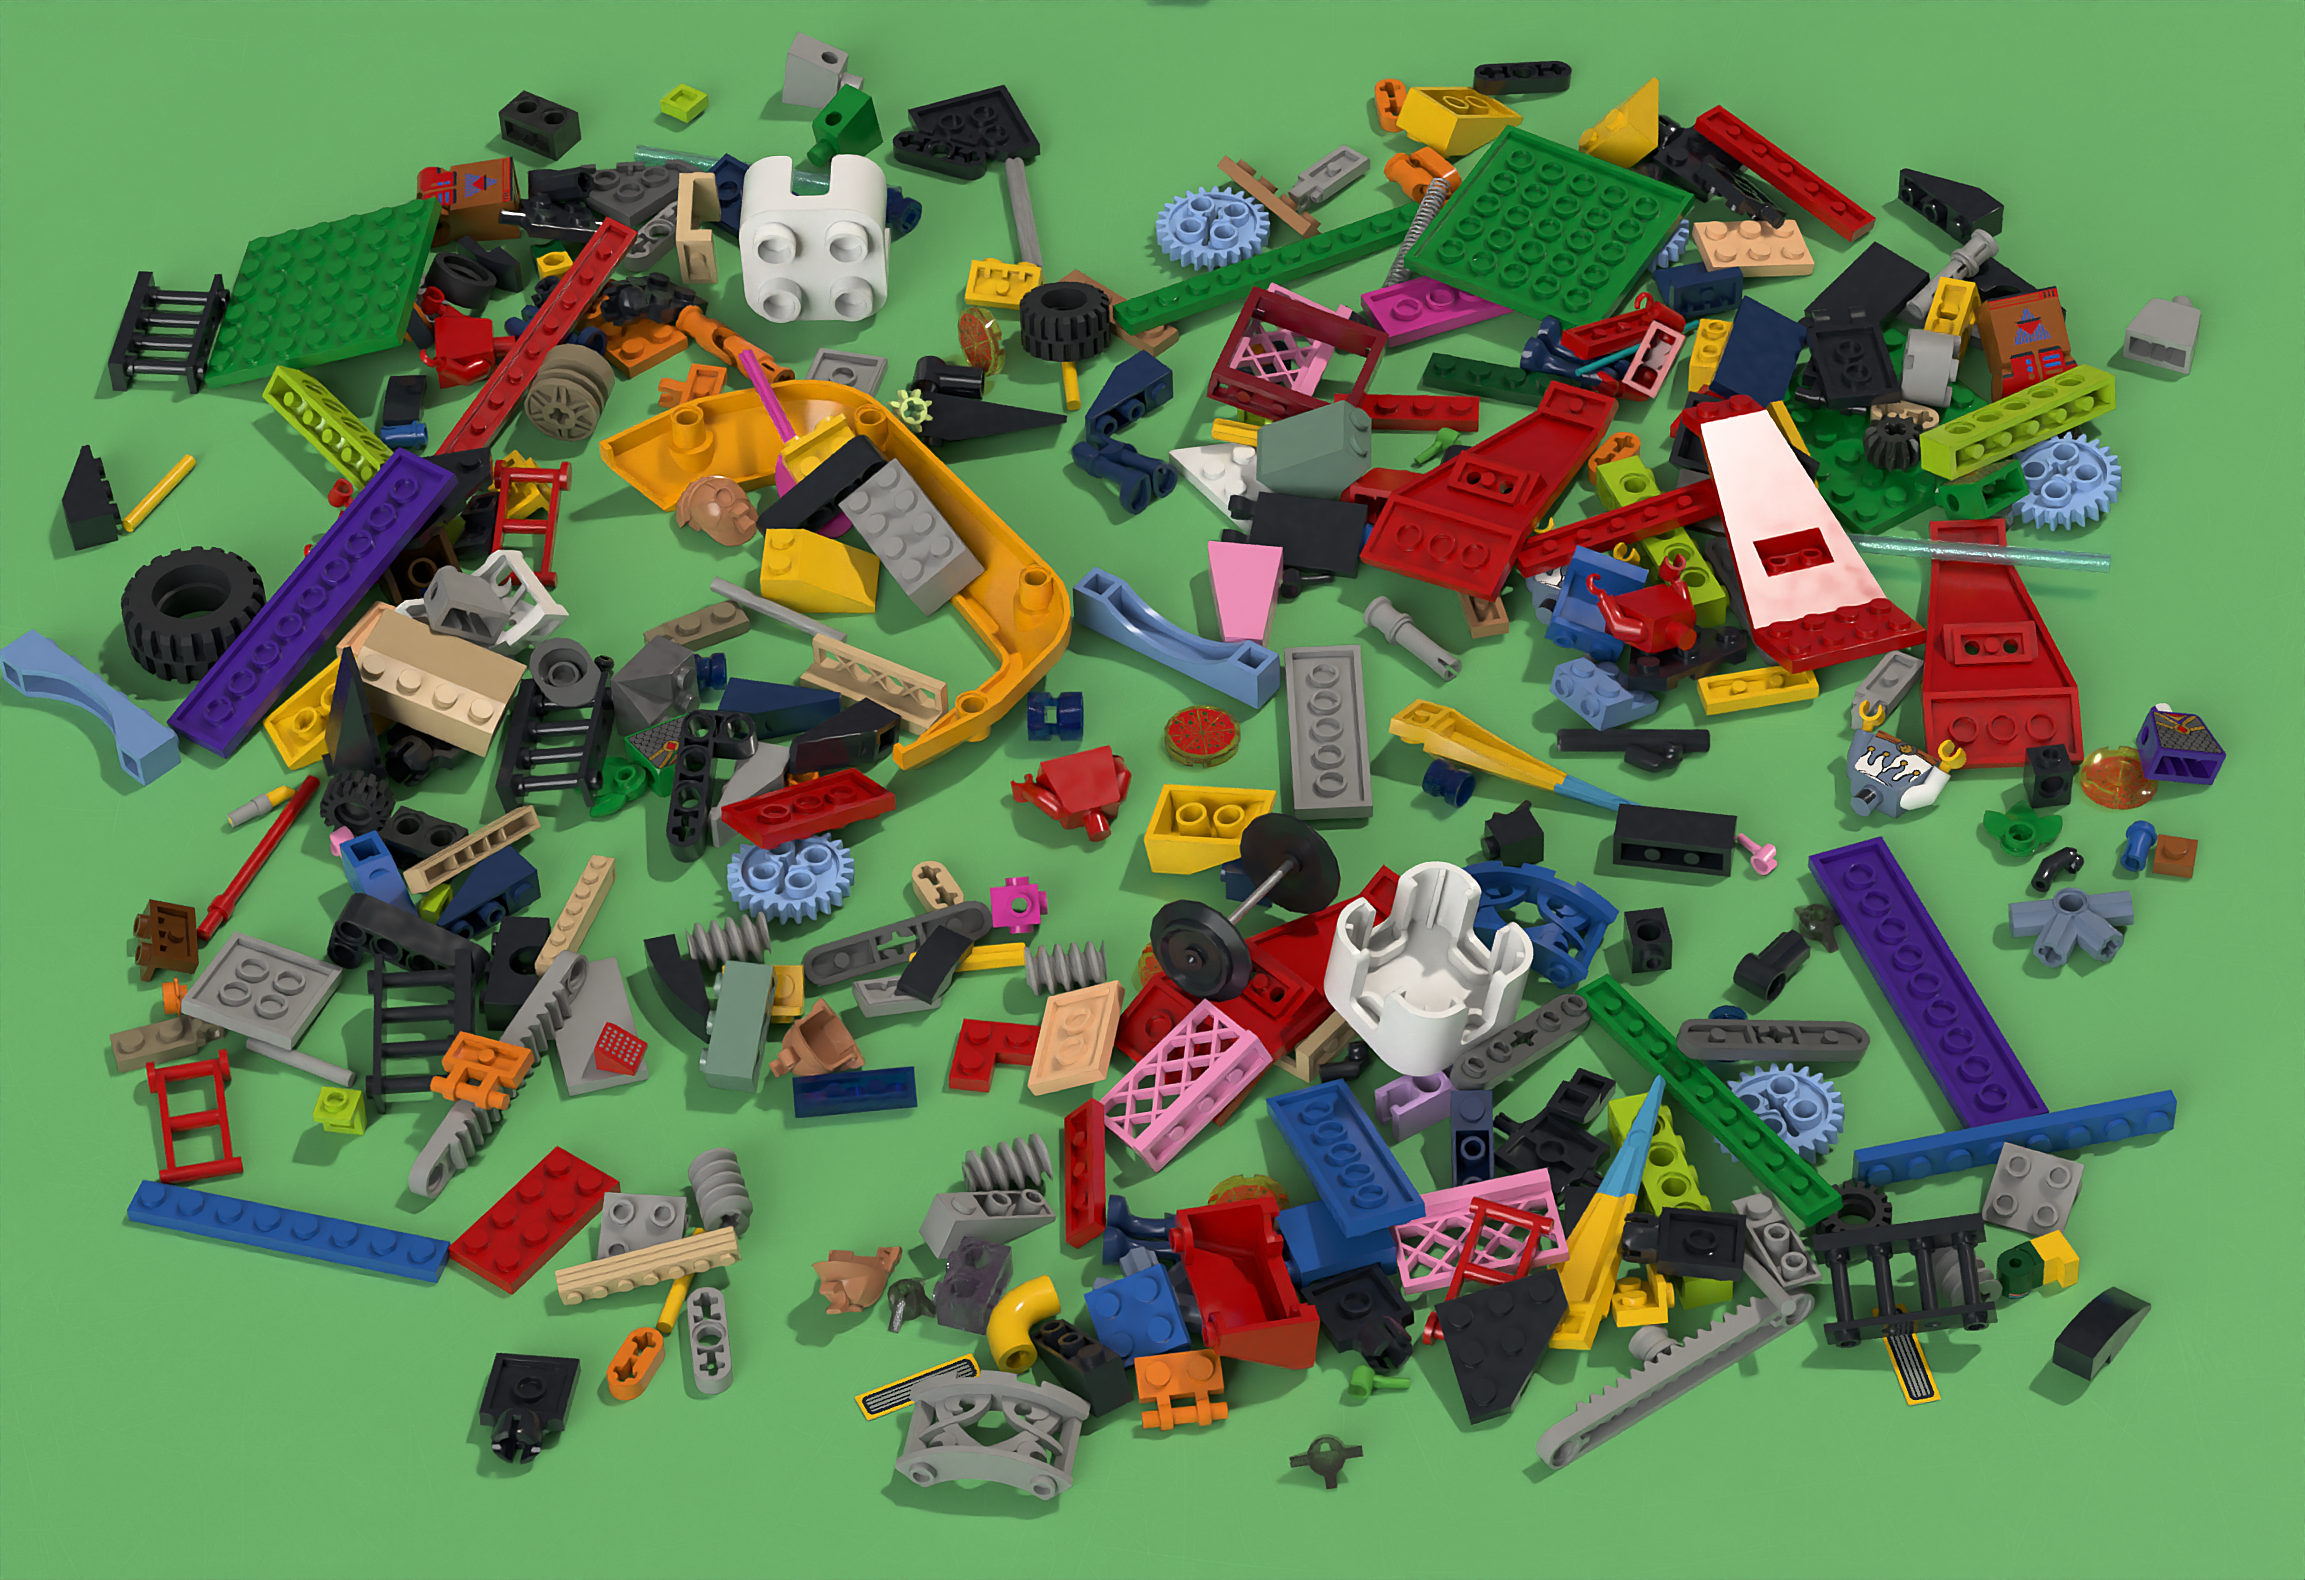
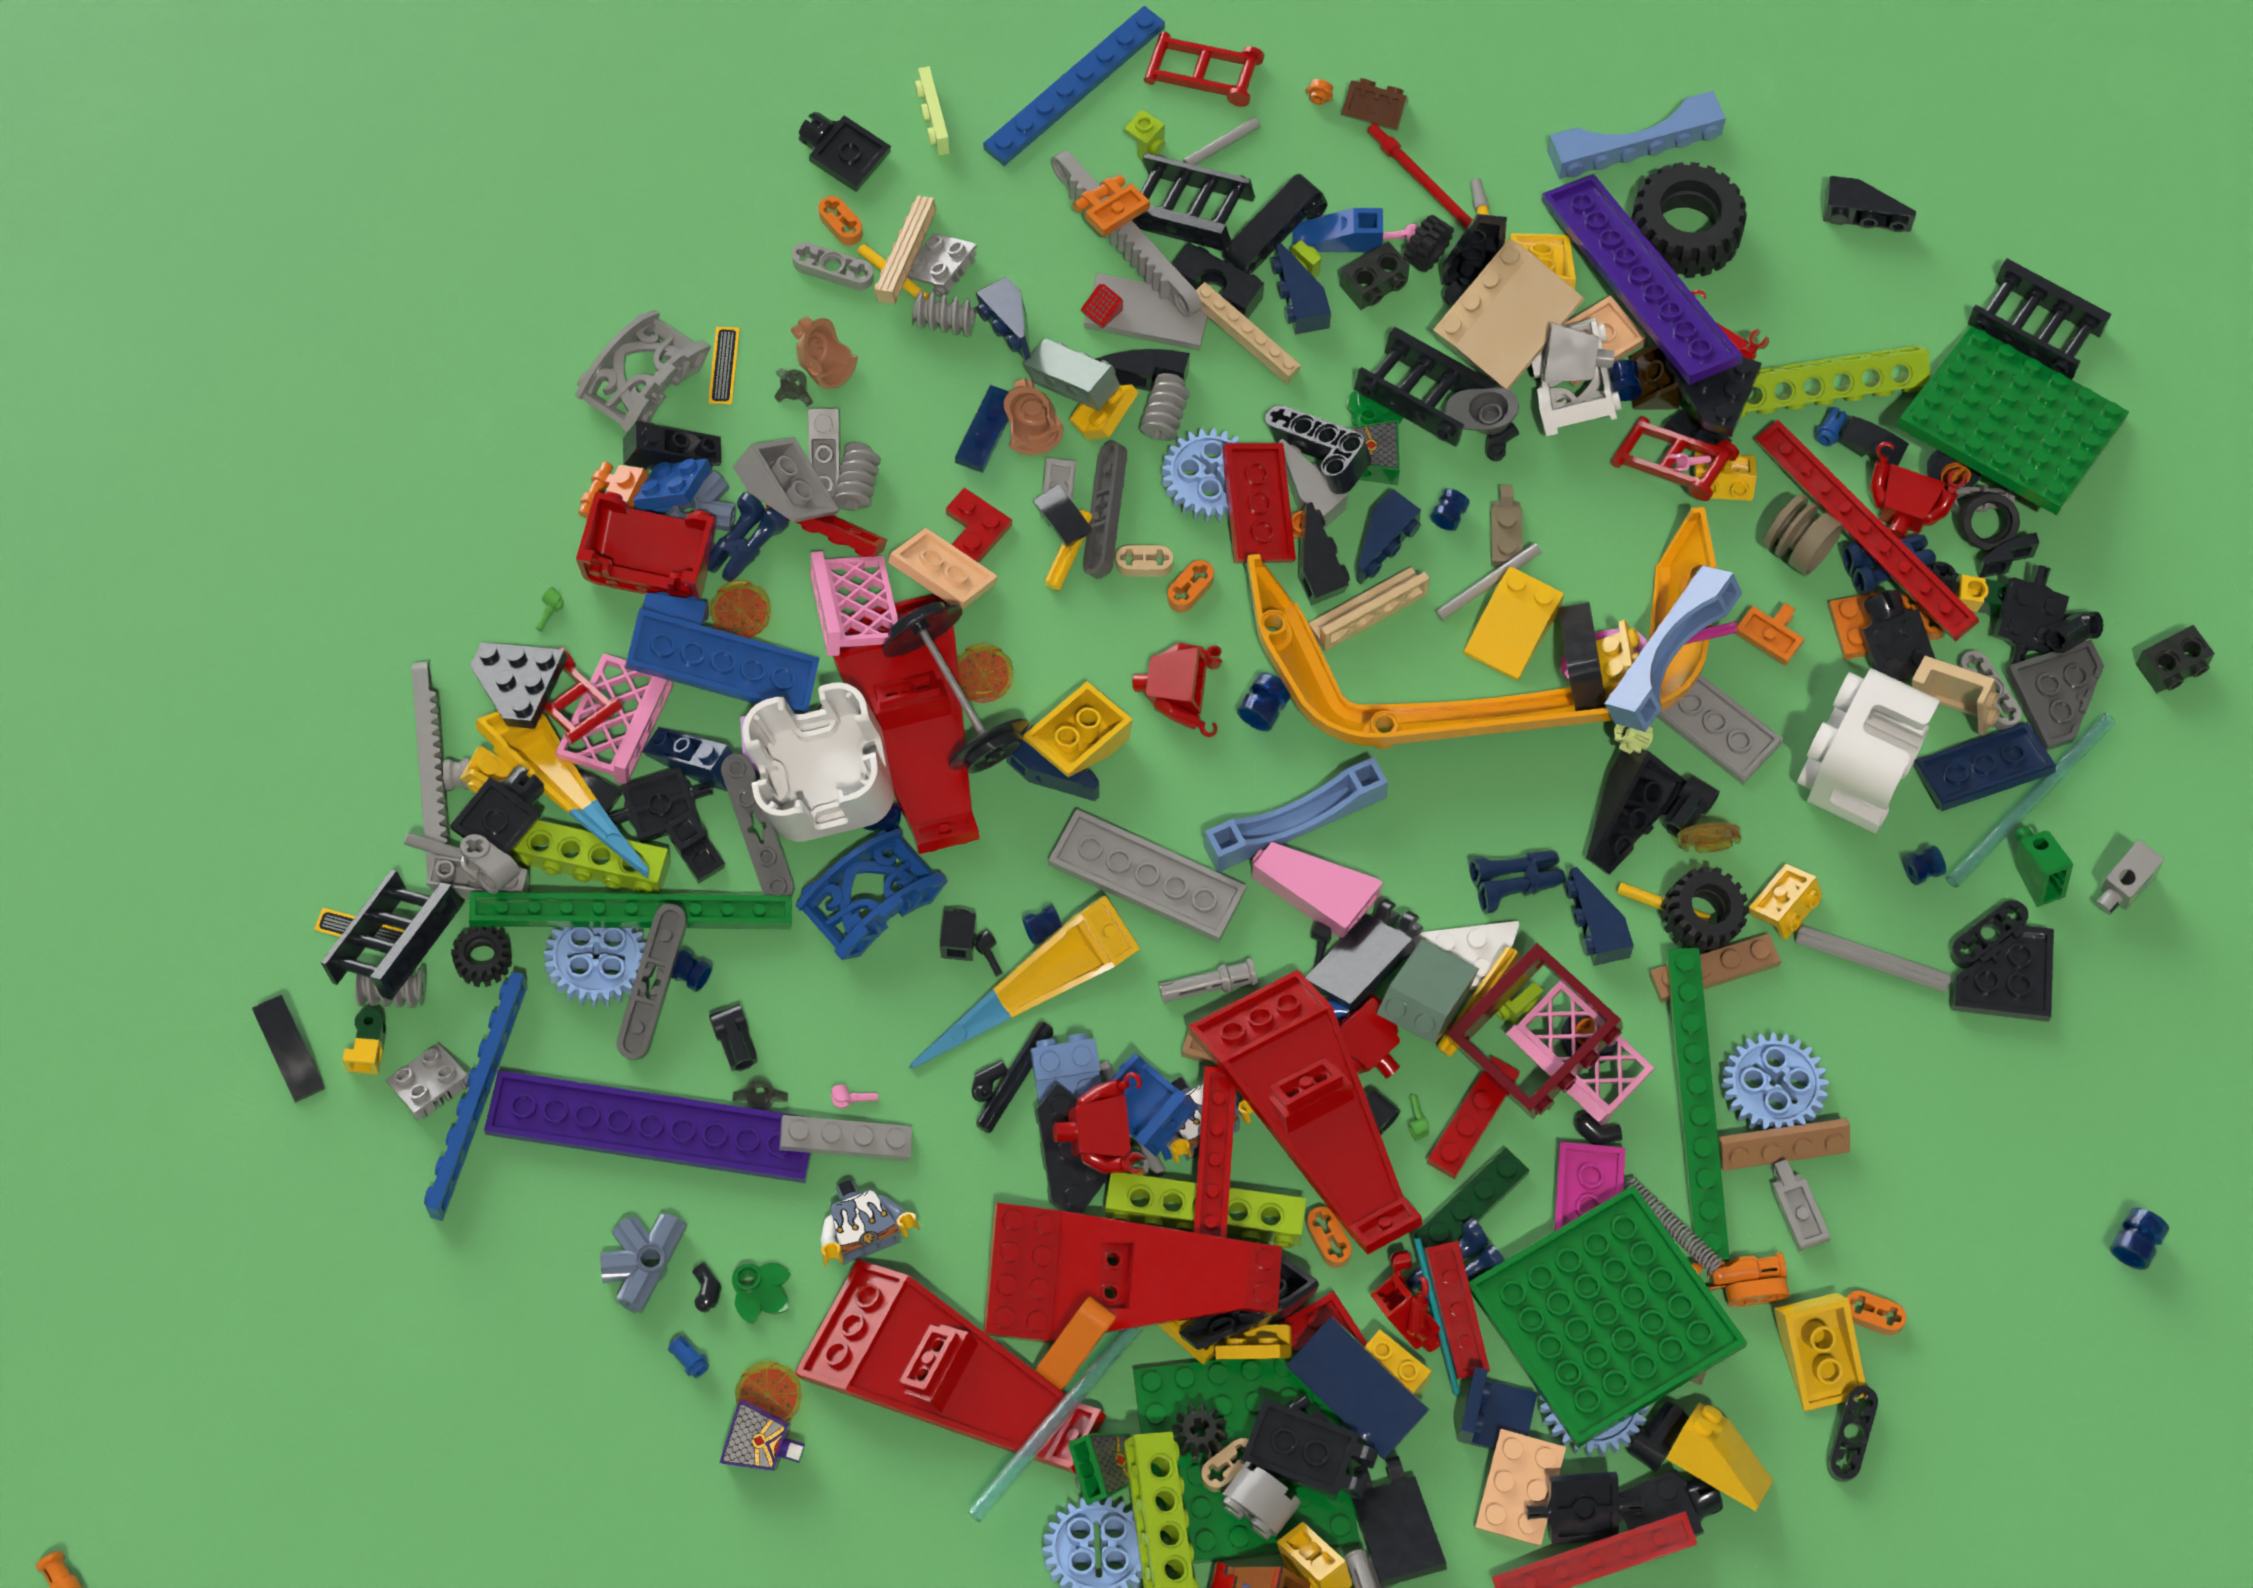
camera: 115 degrees right, 20 degrees up
(158, 493) = (1857, 258): yellow bar -> none
(162, 1041) = (1287, 75): dark tan hinge -> none
(262, 990) = (1286, 131): light grey plate -> none
(414, 1338) = (932, 111): none -> yellowish green plate
(471, 849) = (1339, 289): tan piece -> none
(472, 199) = (2094, 566): dark orange piece -> none
(533, 1220) = (997, 215): red plate -> none
(535, 507) = (1684, 461): none -> bright pink hand
(654, 686) = (1432, 458): flat silver slope -> none
(684, 102) = (2155, 775): lime plate -> none
(691, 1118) = (1005, 311): none -> slope
(718, 509) = (1624, 589): nougat helmet -> none
(727, 344) = (1805, 679): orange piece -> none
(876, 389) = (1704, 601): none -> medium blue arch
(911, 537) = (1502, 685): light grey brick -> none
(944, 842) = (1195, 590): none -> orange beam
(973, 1284) = (768, 423): clear purple brick -> none
(1002, 900) = (1089, 590): dark pink brick -> none
(1014, 1317) = (726, 424): yellow cylinder -> none
(1064, 1213) = (785, 480): none -> light grey slope
(1065, 968) = (1012, 592): light grey piece -> none
(1202, 736) = (1197, 796): tile -> none
(1326, 1462) = (506, 546): clear smoke piece -> none
(1363, 1314) = (598, 621): black plate -> none
(1647, 940) = (812, 980): black brick -> none
(1674, 840) = (892, 1042): black brick -> none
(1755, 689) = (1014, 1179): yellow plate -> none
(1766, 1210) = (487, 863): none -> light grey piece
(1811, 825) = (845, 1138): none -> light grey plate
(1876, 543) = (1075, 1343): none -> orange beam
(1886, 685) = (956, 1279): light grey hinge -> none
(2048, 776) = (789, 1331): black brick -> none
(2175, 856) = (666, 1381): dark orange plate -> none

